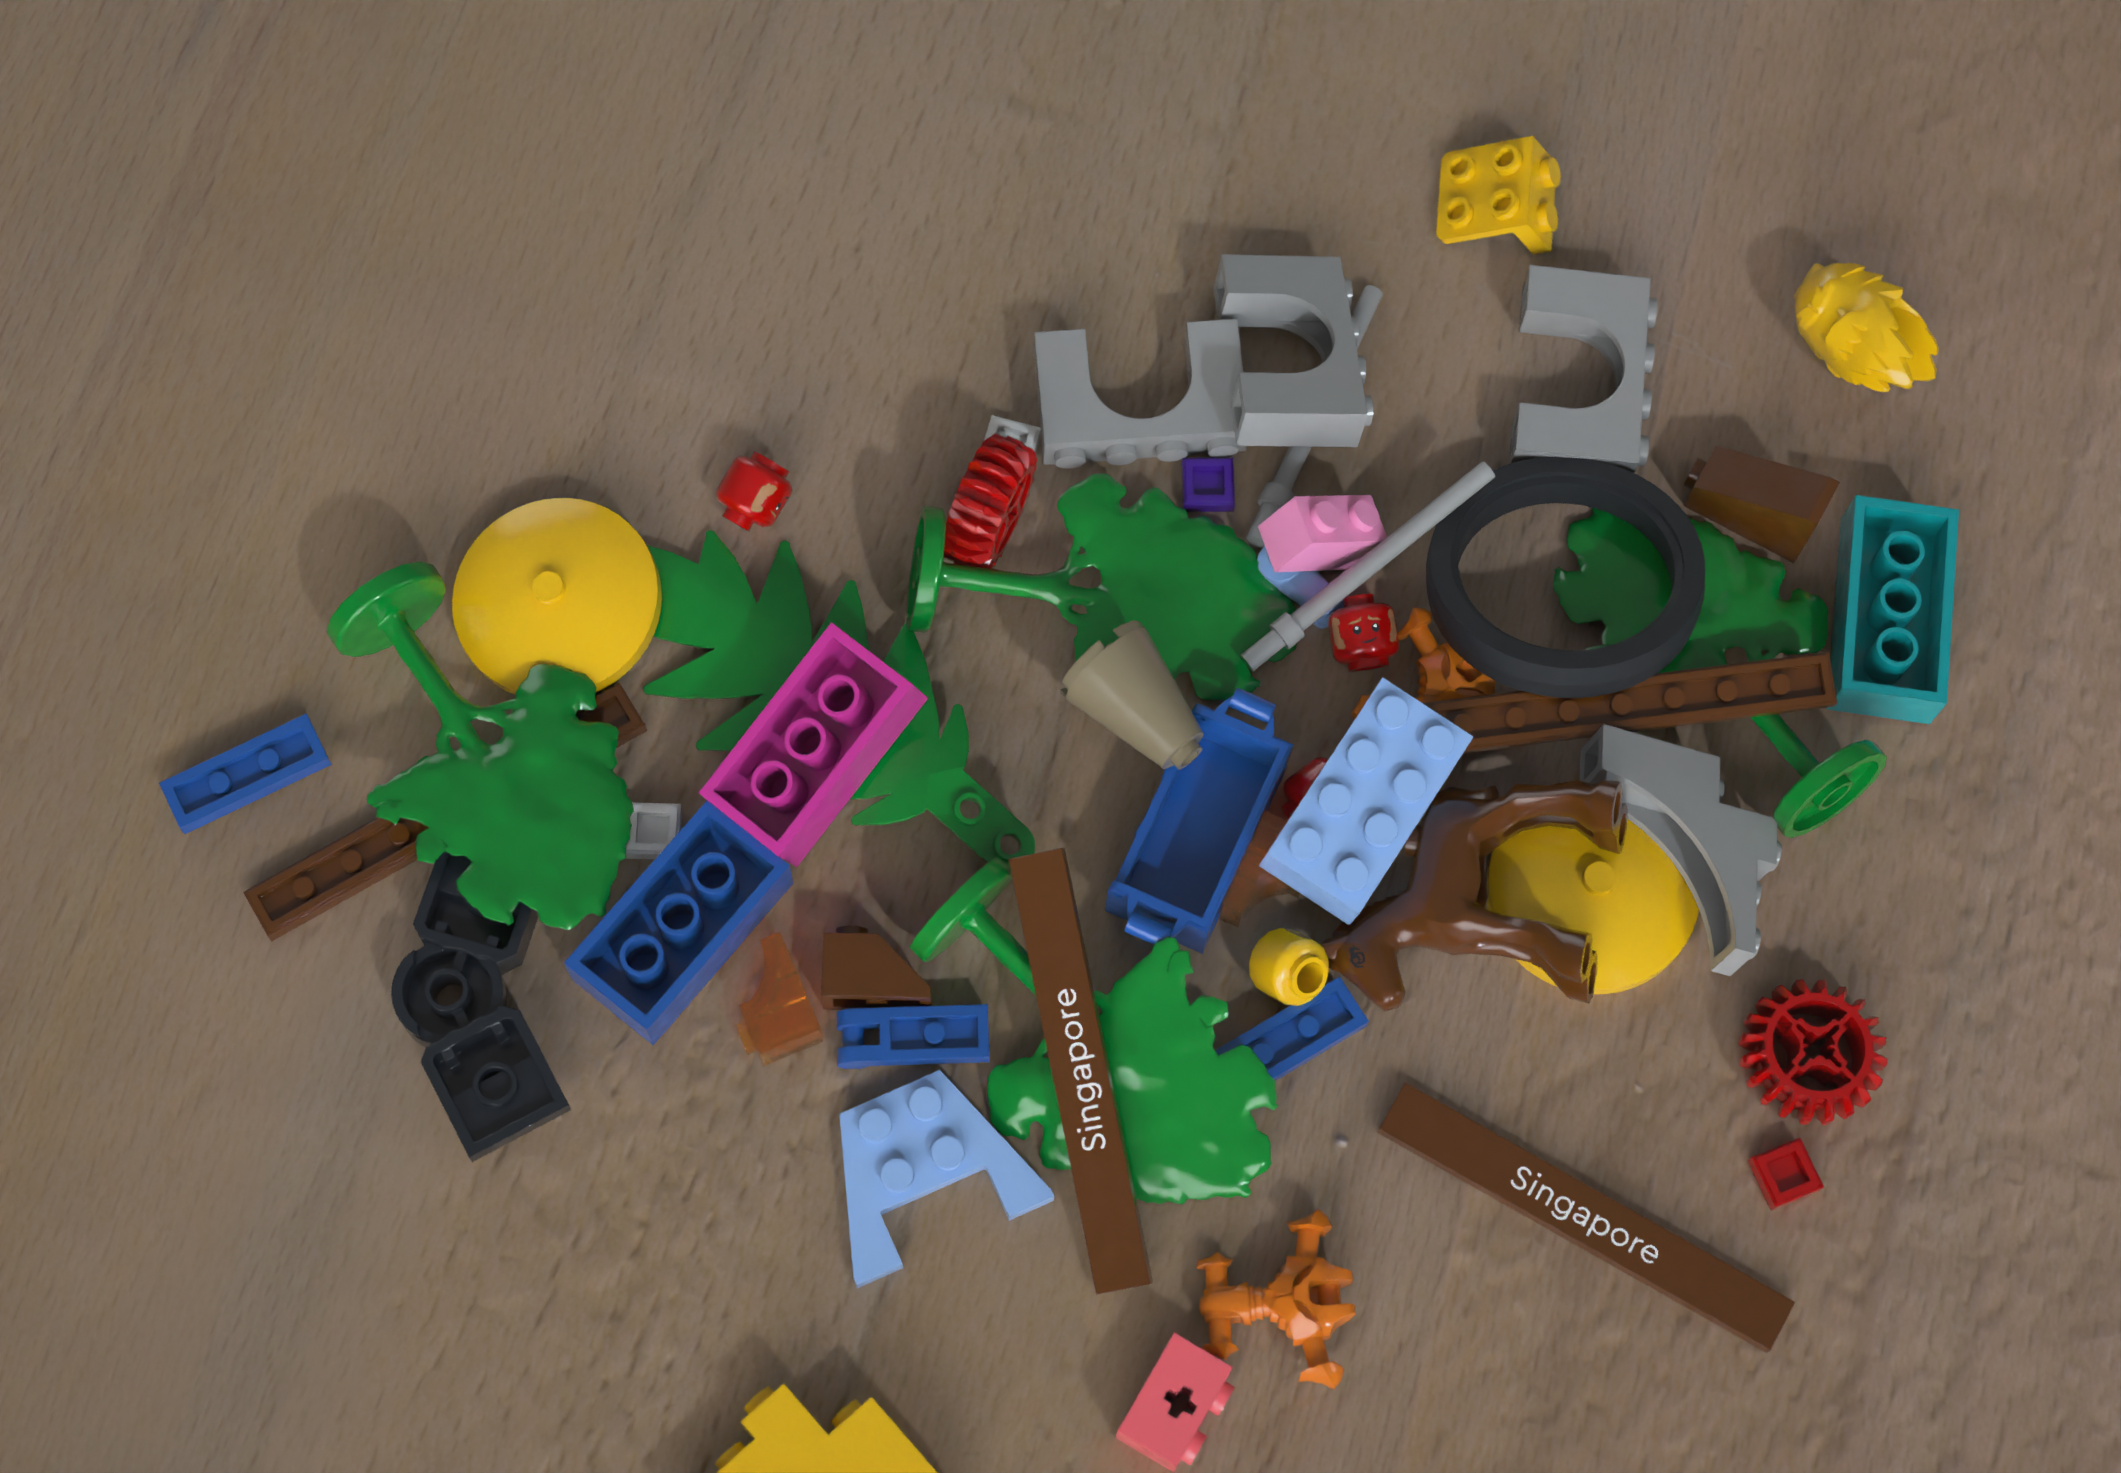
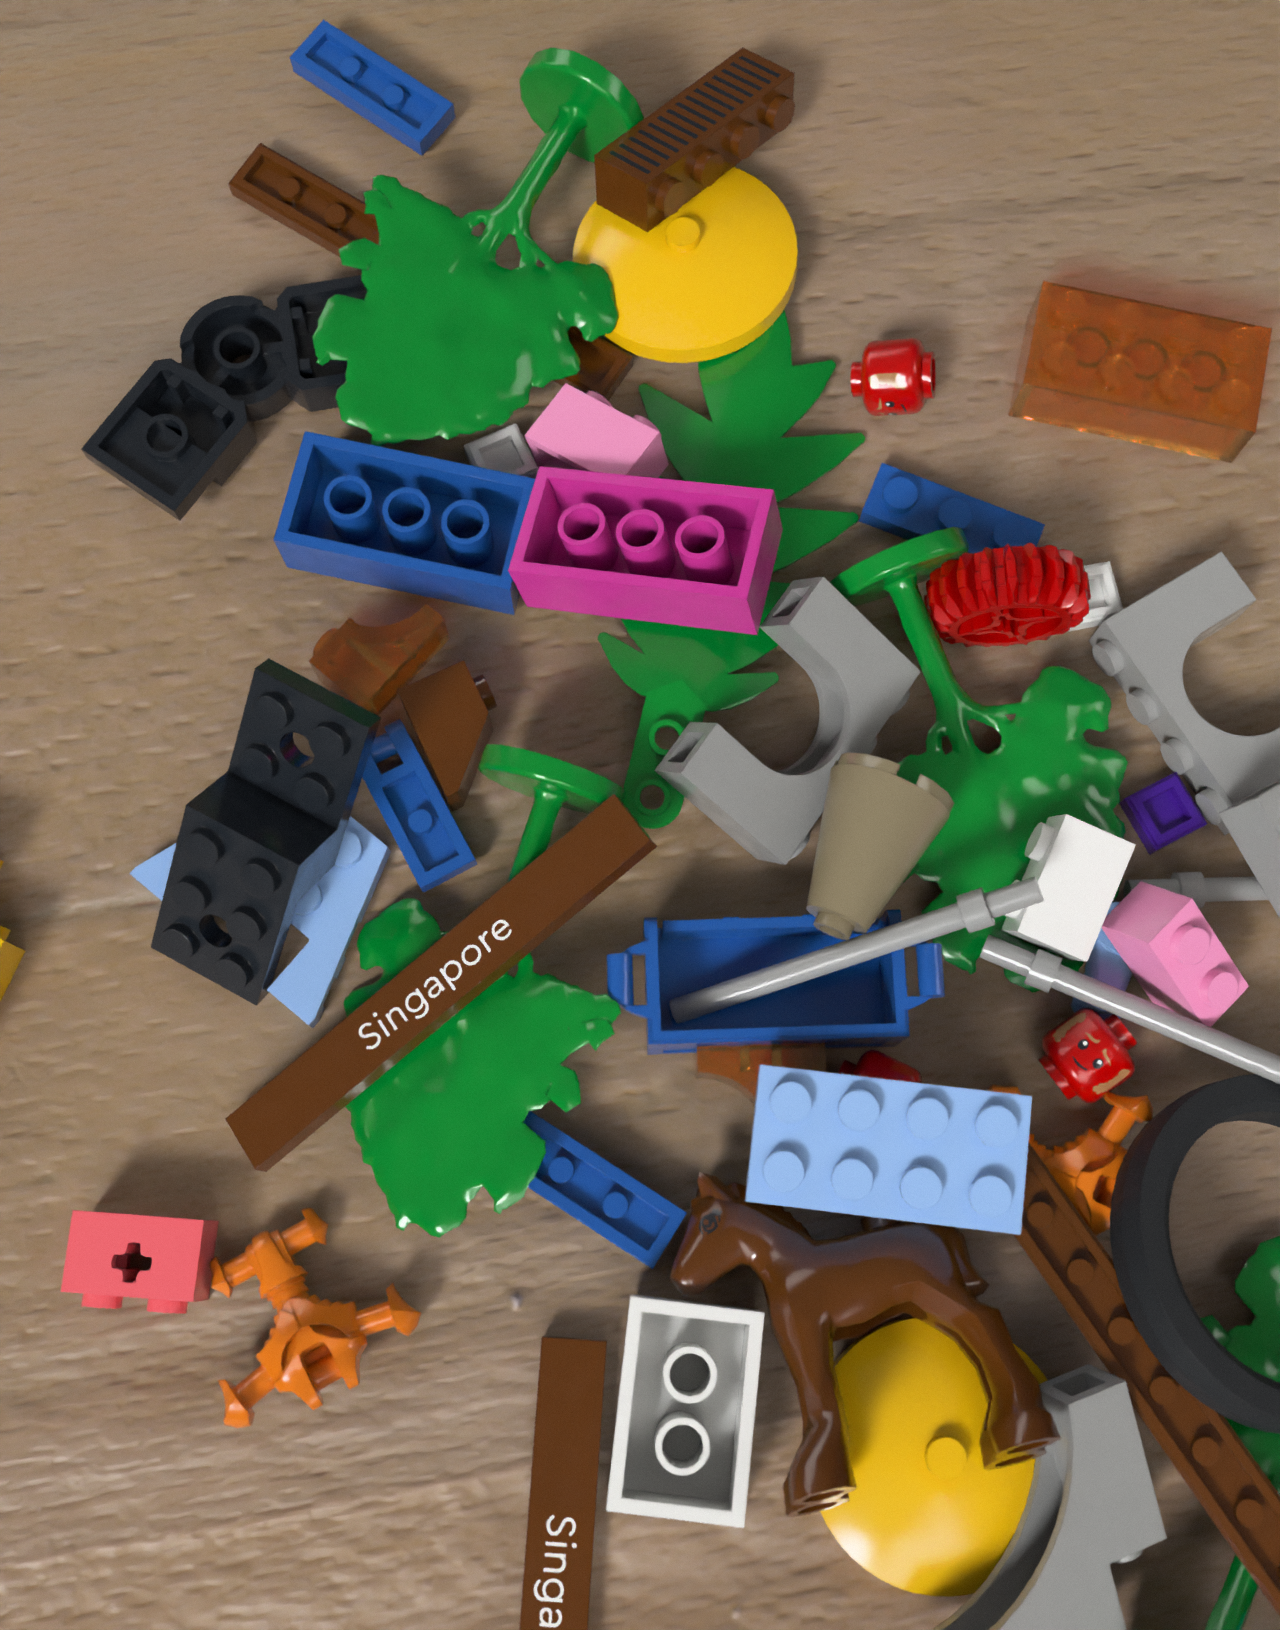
camera: 65 degrees right, 5 degrees up
(466, 535) = (694, 139): none -> reddish brown brick
(688, 747) = (593, 436): none -> bright pink brick
(851, 311) = (1140, 372): none -> clear orange brick
(892, 514) = (916, 506): none -> blue plate
(896, 1145) = (263, 831): none -> black bracket
(1001, 650) = (858, 687): none -> light grey arch
(1228, 648) = (972, 911): none -> light grey bar
(1235, 580) = (1078, 880): none -> white brick
(1288, 966) = (668, 1152): yellow head -> none
(1479, 1043) = (686, 1411): none -> white brick

